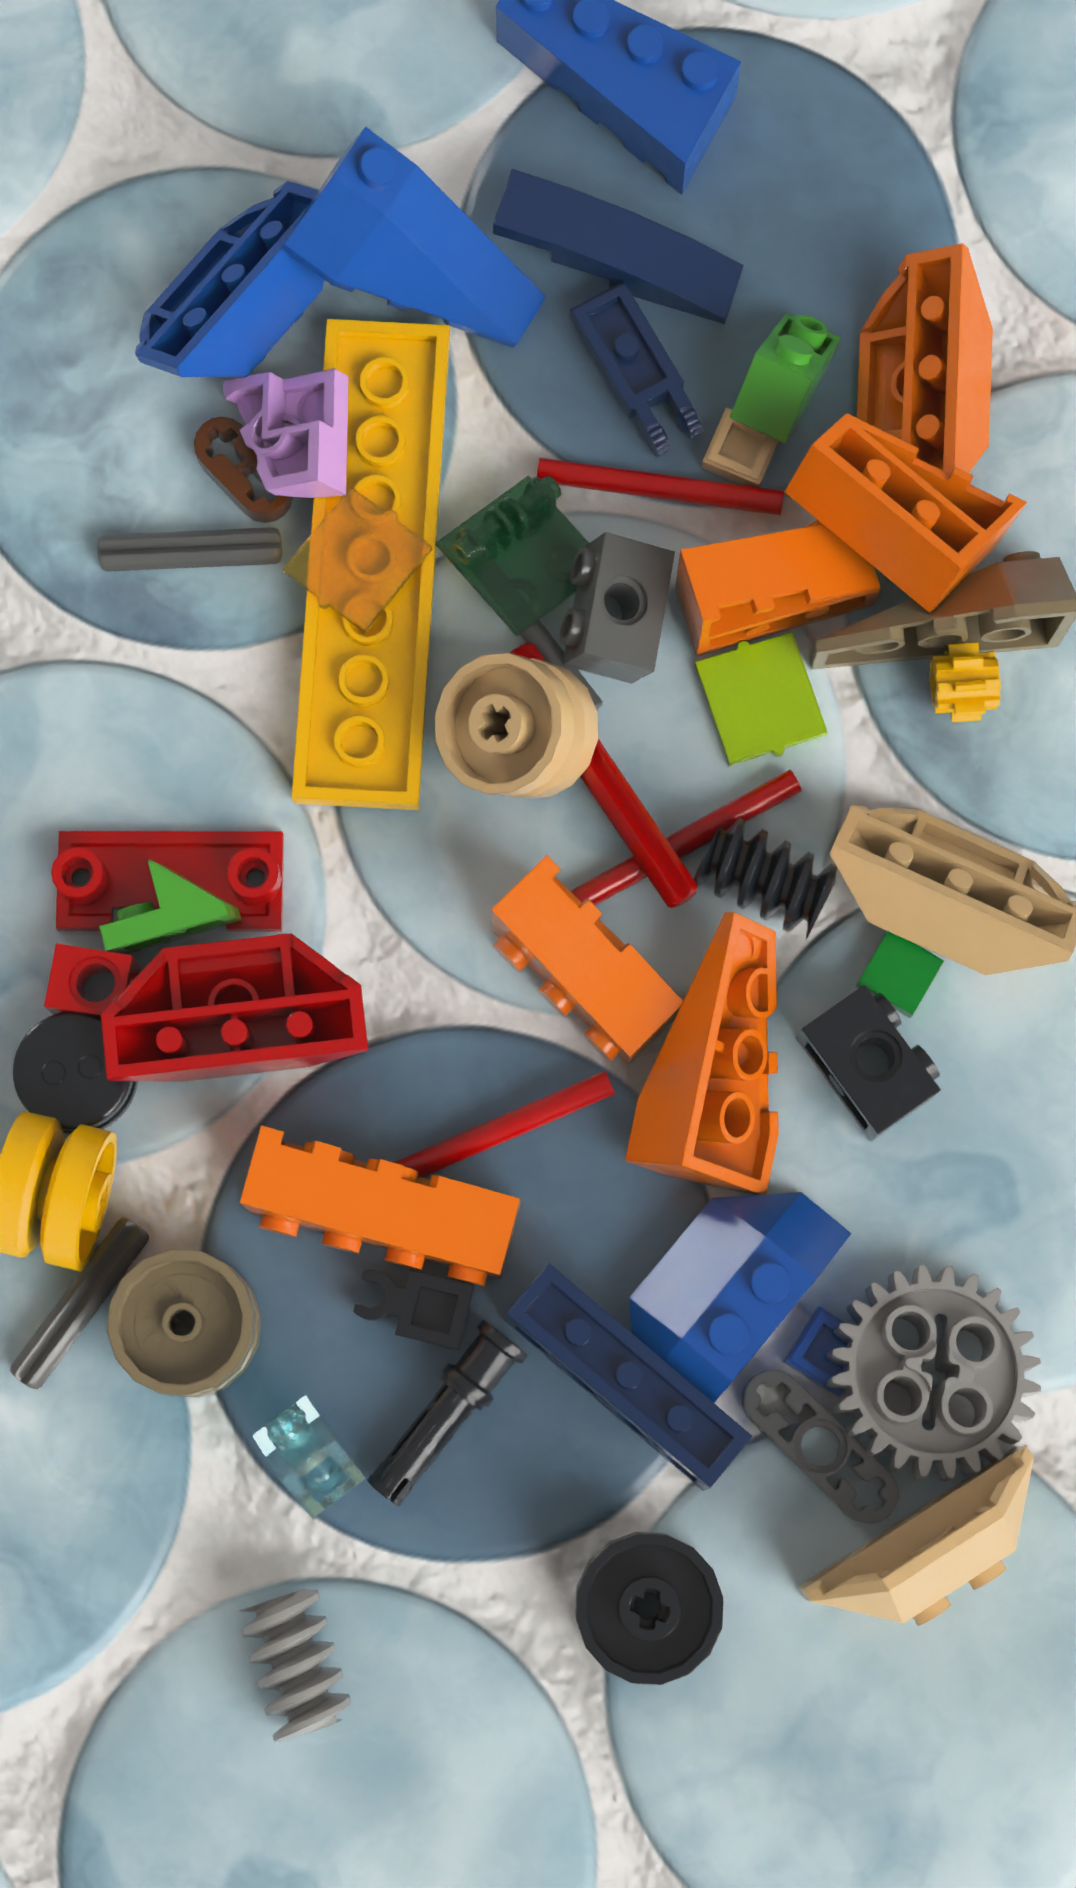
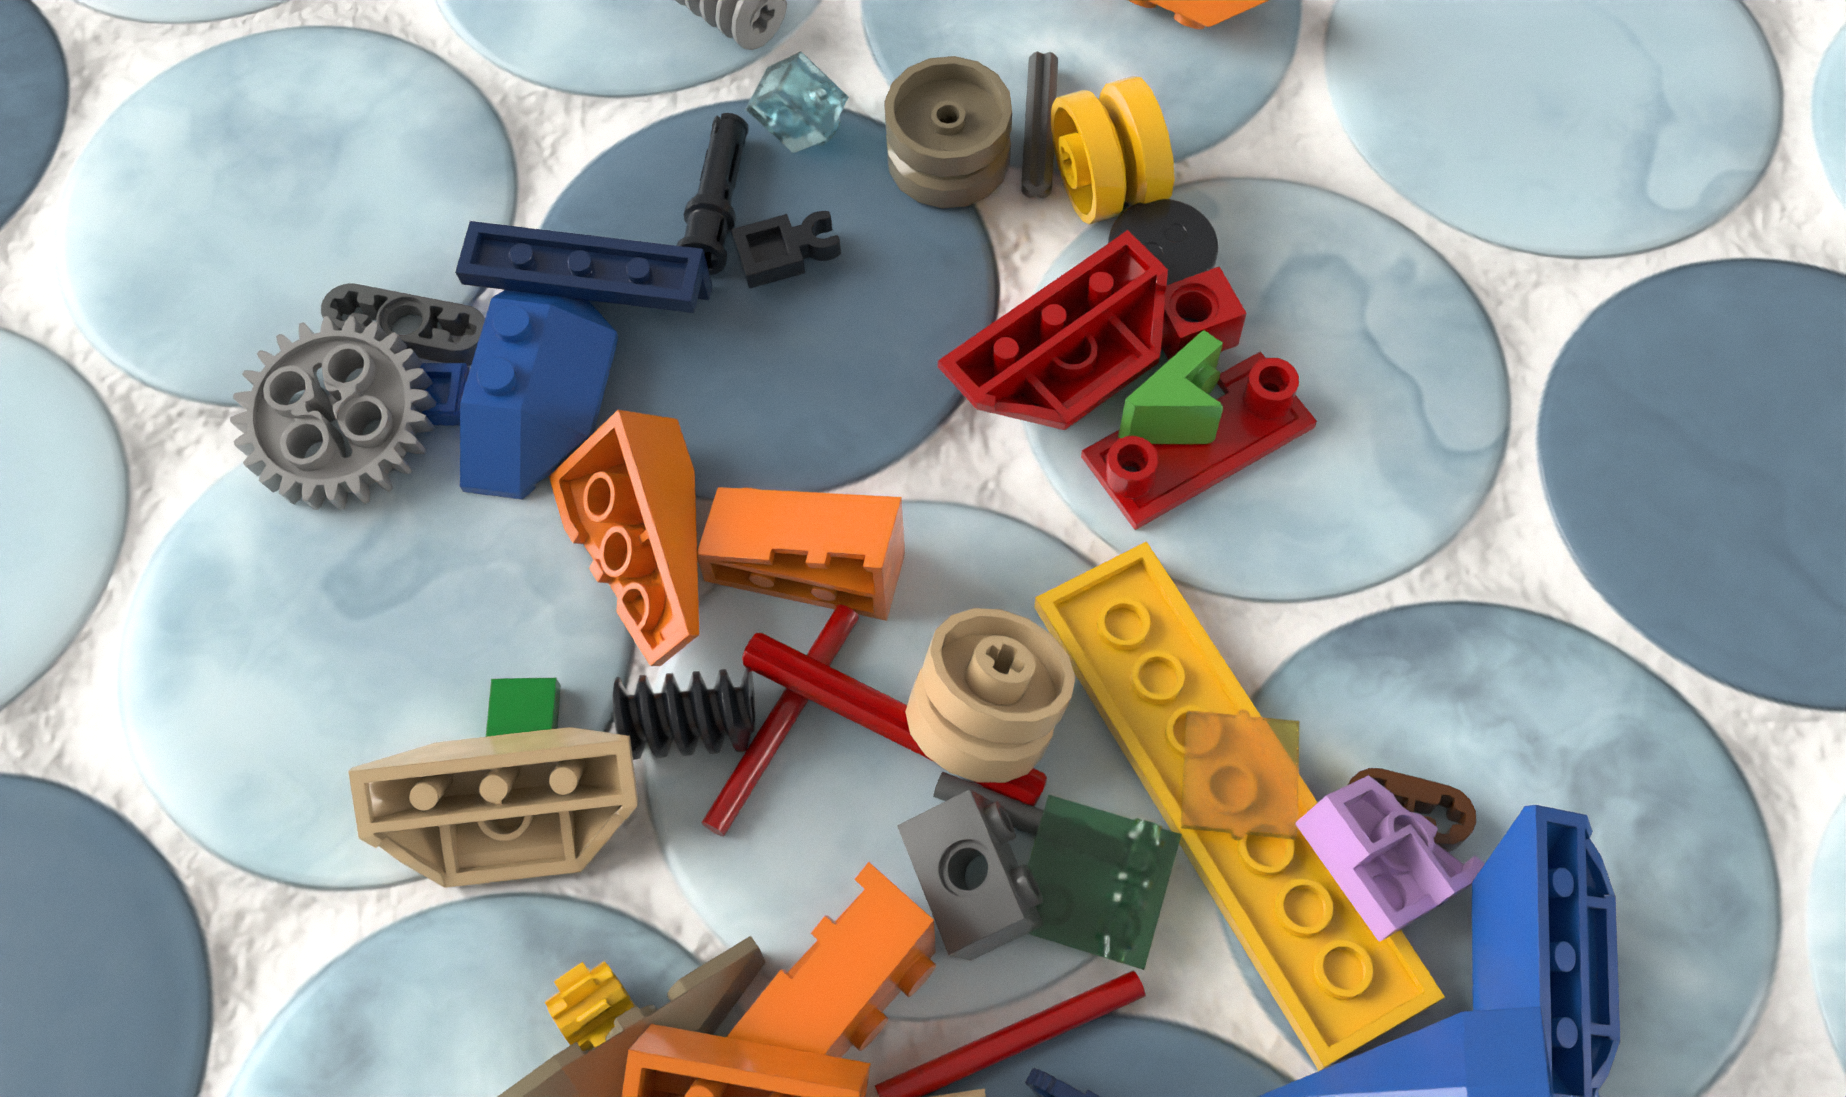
camera: 150 degrees right, 15 degrees down
(189, 549) = (1395, 709): dark grey axle -> none
(379, 1207) = (861, 281): orange wedge -> none
(510, 1125) = (801, 399): red bar -> none
(655, 1647) = (481, 144): black wheel -> none
(760, 698) = (785, 887): lime piece -> none
(871, 1100) = (484, 589): black brick -> none
(933, 1549) = (280, 281): tan wedge -> none

